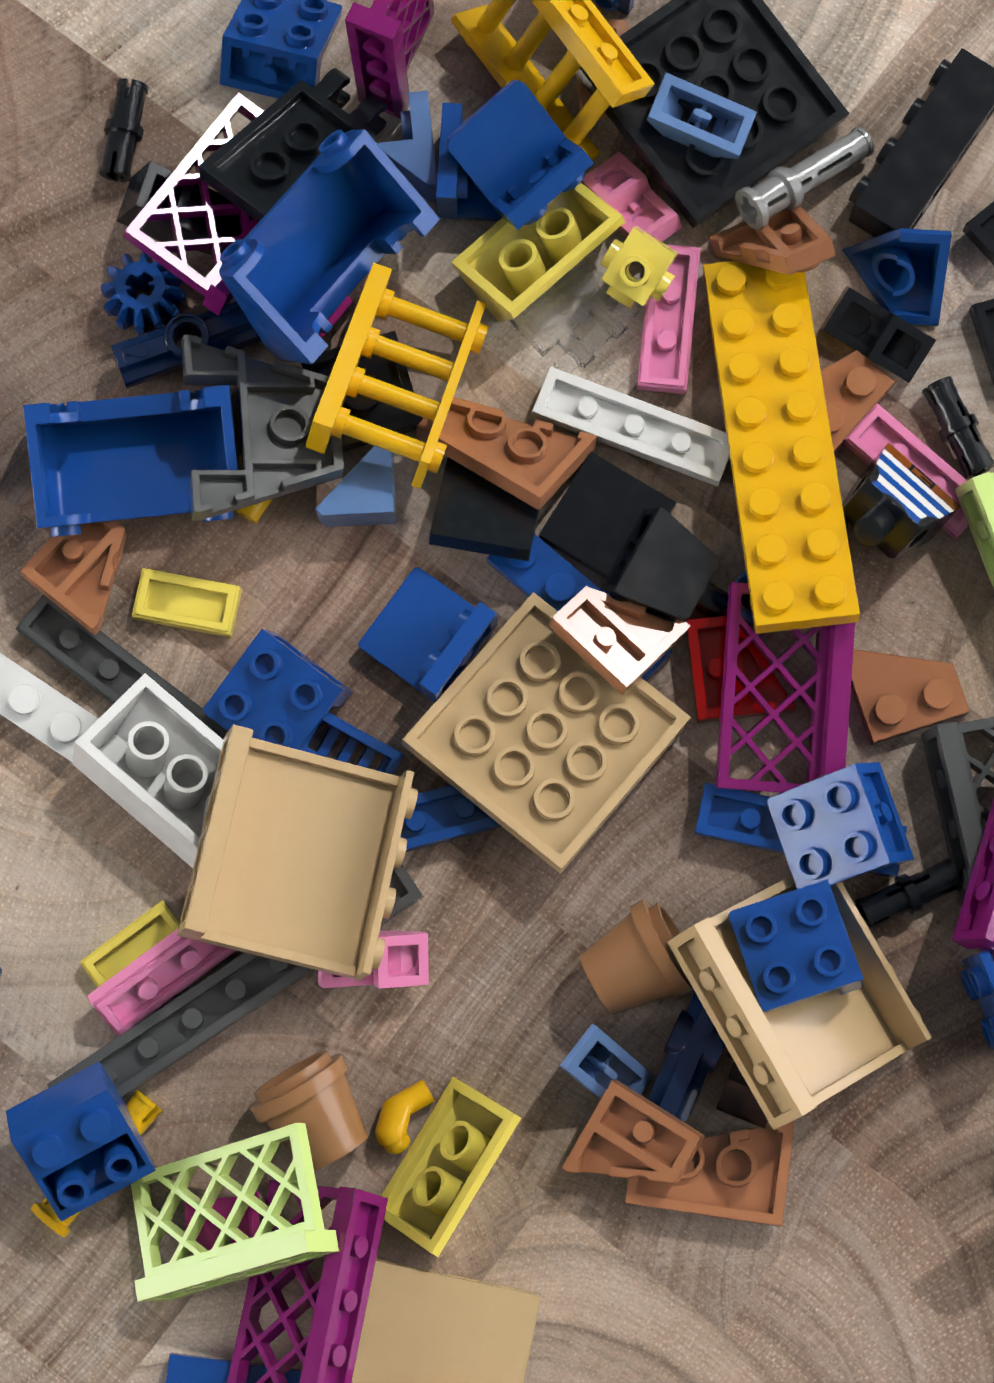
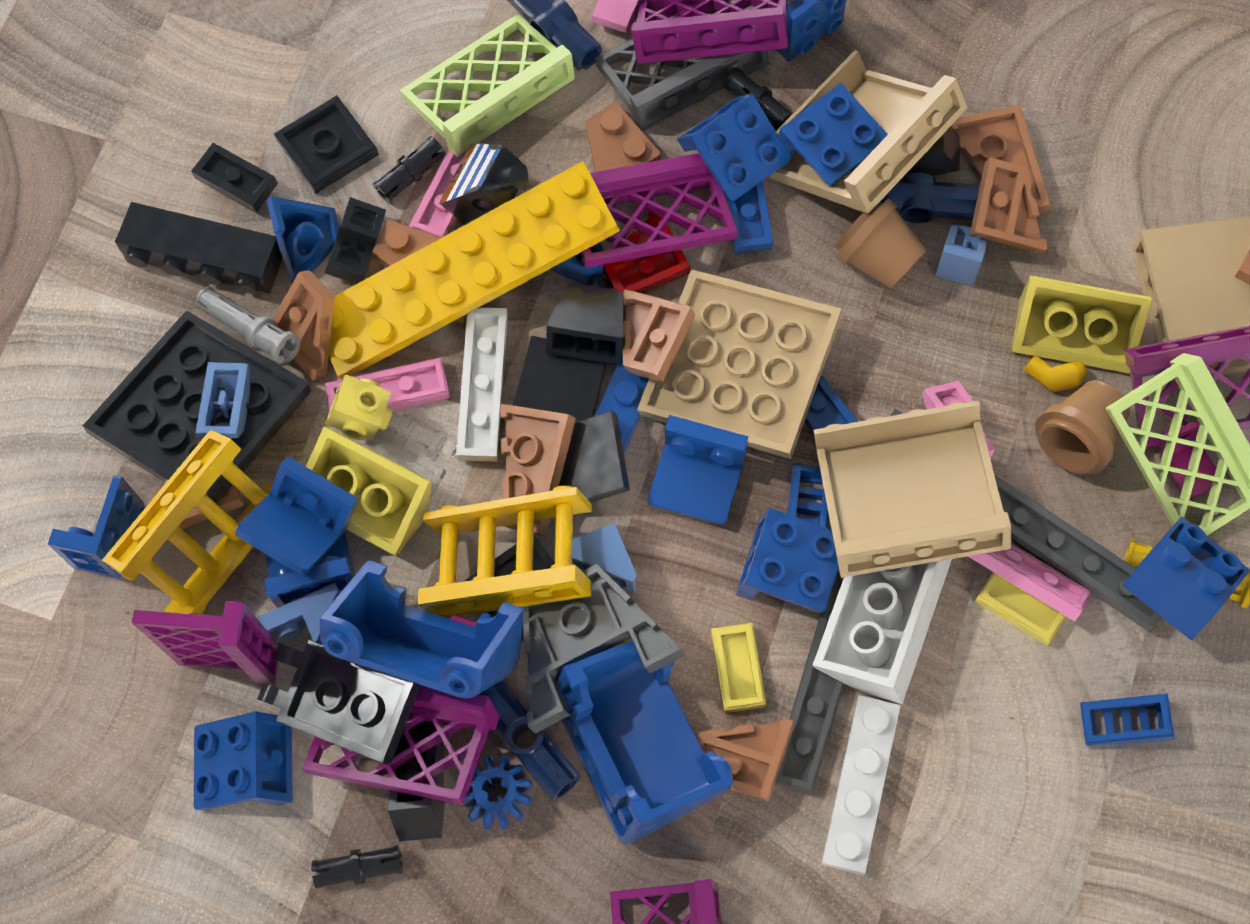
camera: 110 degrees left, 10 degrees down
(629, 193) = (300, 438): bright pink slope -> none

